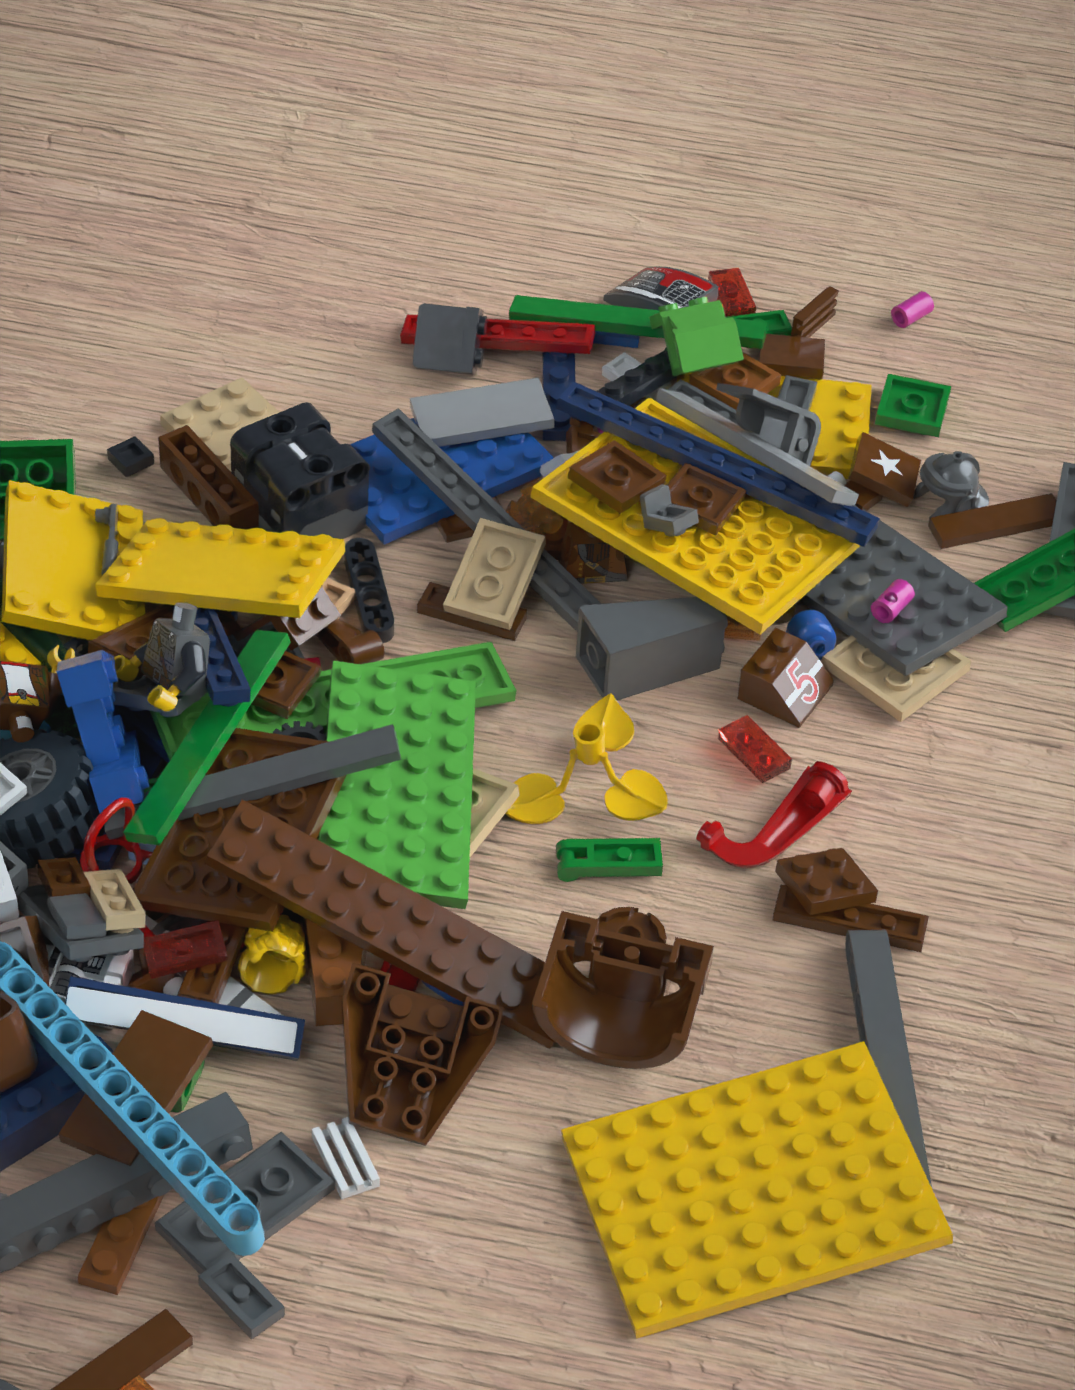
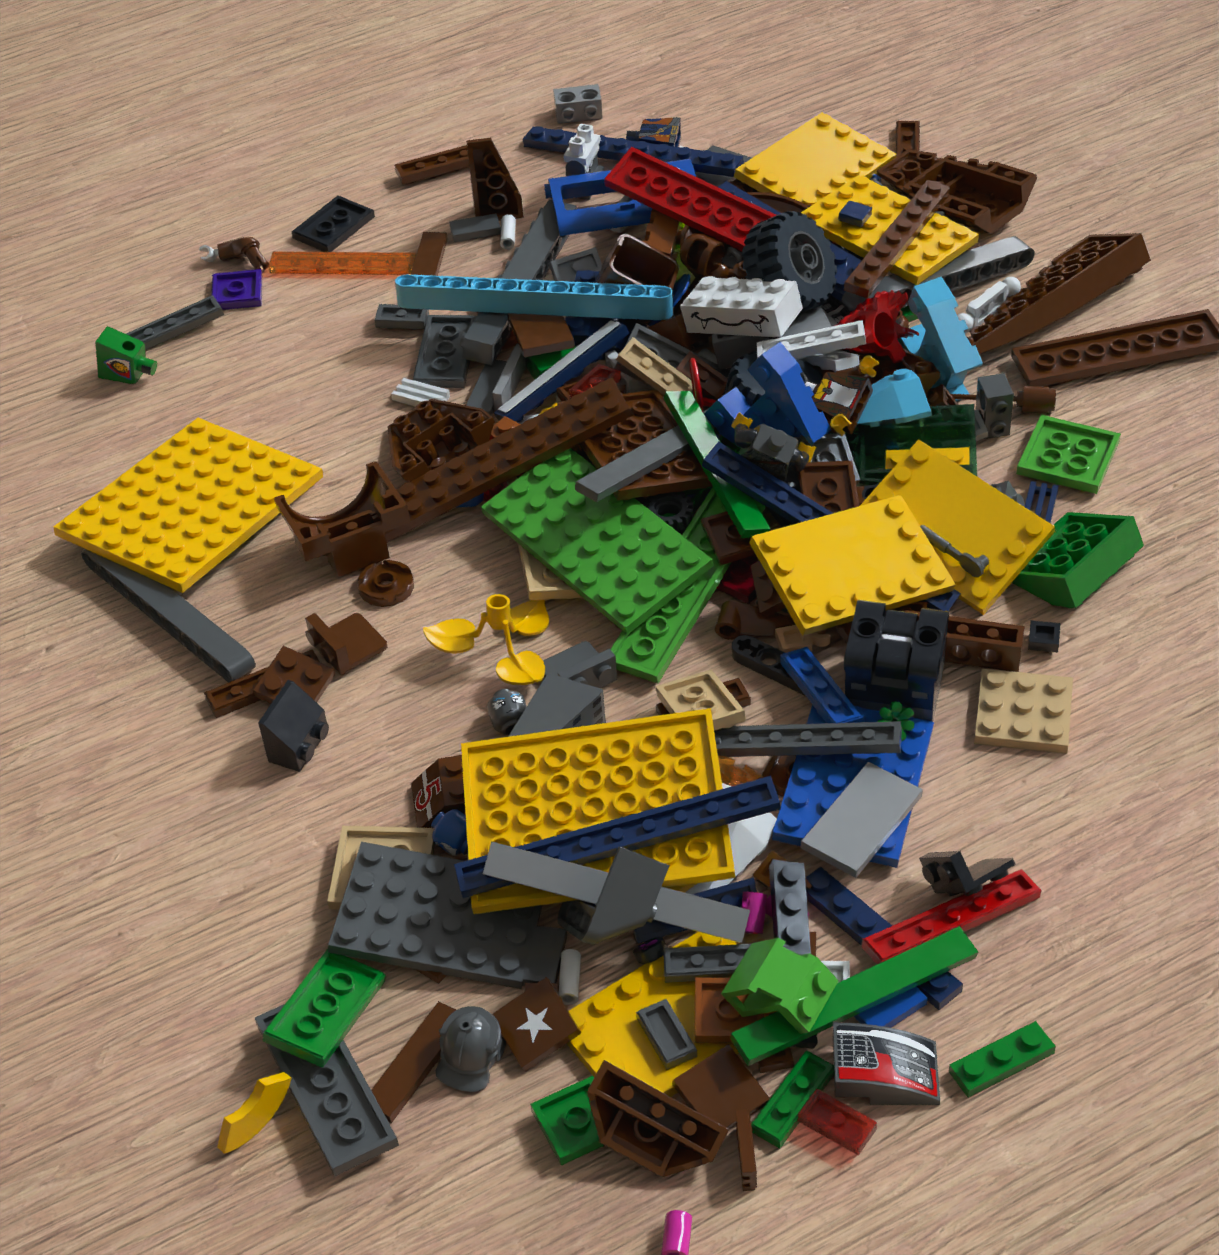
camera: 145 degrees right, 0 degrees up
(77, 916) = (661, 344): dark grey tile -> none
(238, 1079) = (509, 378): none -> light grey tile
(278, 1096) = (482, 392): none -> dark grey tile
(367, 452) = (896, 714): none -> green plant
(377, 525) = (819, 687): none -> blue tile
(549, 698) = (583, 665): none -> dark grey bracket
(573, 260) = (1001, 1059): none -> green plate
(608, 858) = (445, 606): green plate -> none
(615, 476) = (662, 754): reddish brown plate -> none
(654, 708) = (506, 710): none -> dark grey head
(664, 516) = (596, 751): dark grey bracket -> none
(707, 493) = (598, 797): reddish brown tile -> none
(734, 892) = (345, 642): none -> reddish brown bracket
(754, 749) = (420, 737): clear red plate -> none
(807, 804) = (349, 724): red animal -> none
(861, 352) = (650, 1124): none -> reddish brown wedge
(875, 823) = (292, 727): none -> black slope
(892, 601) = (408, 871): dark pink piece -> none

